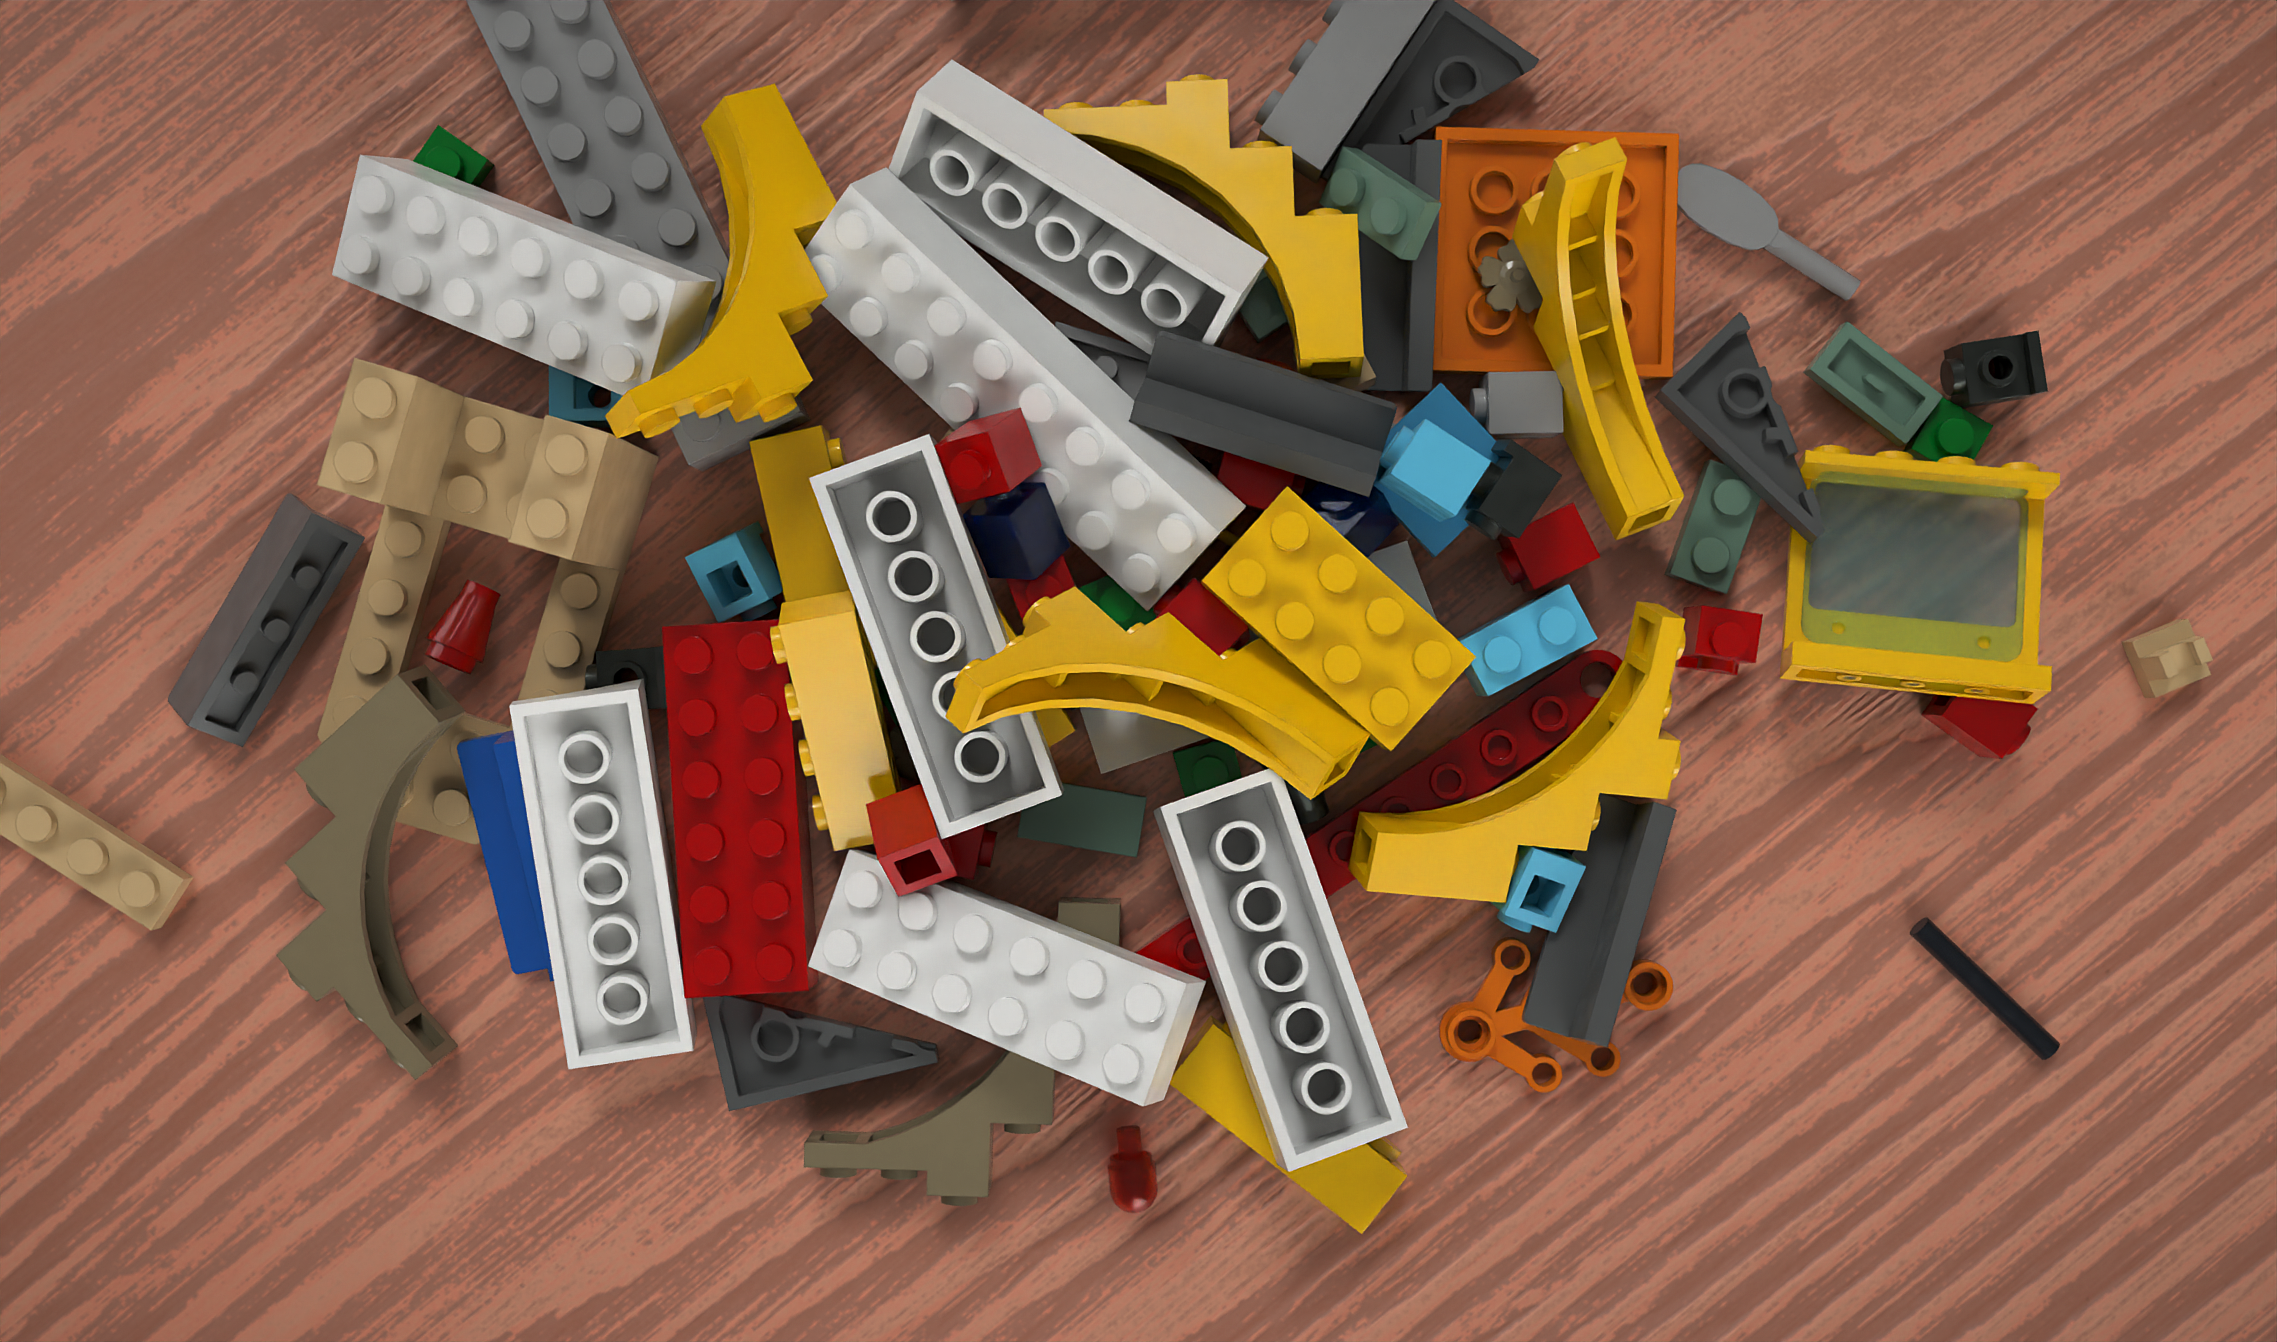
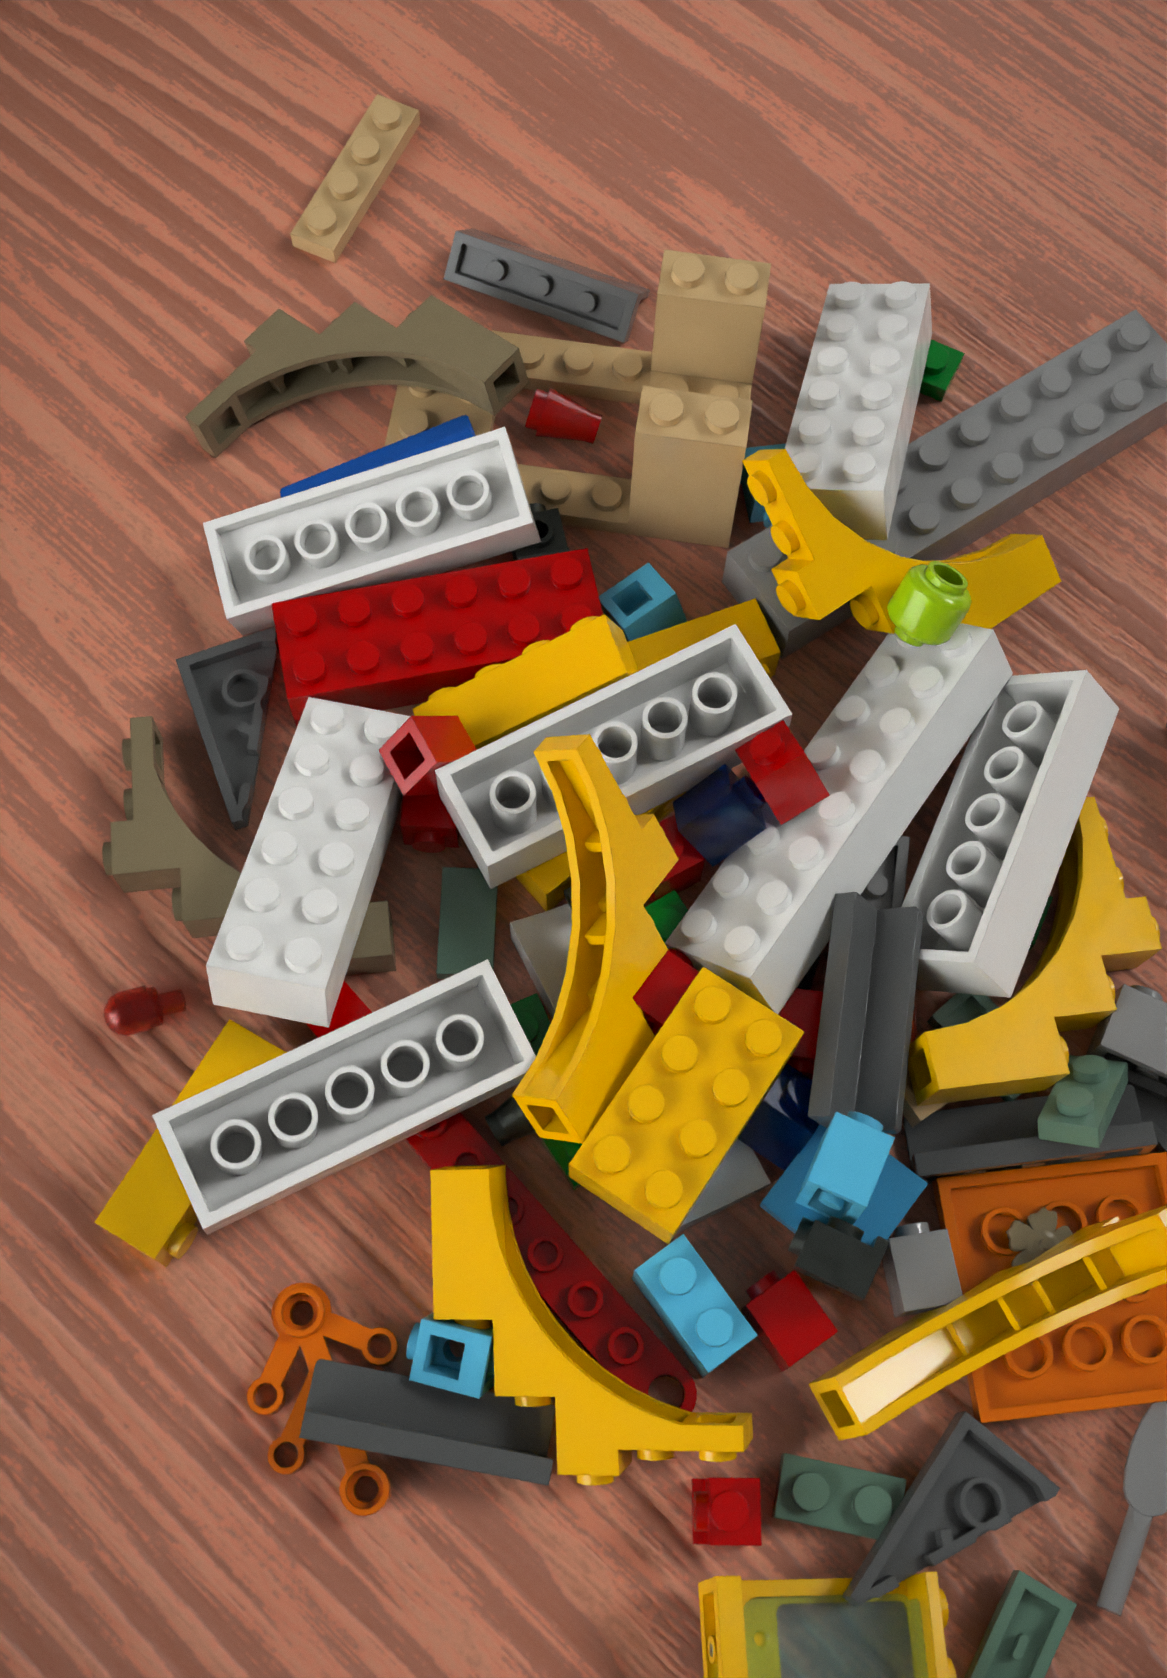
camera: 80 degrees right, 20 degrees down
(813, 252) = (929, 604): none -> lime head

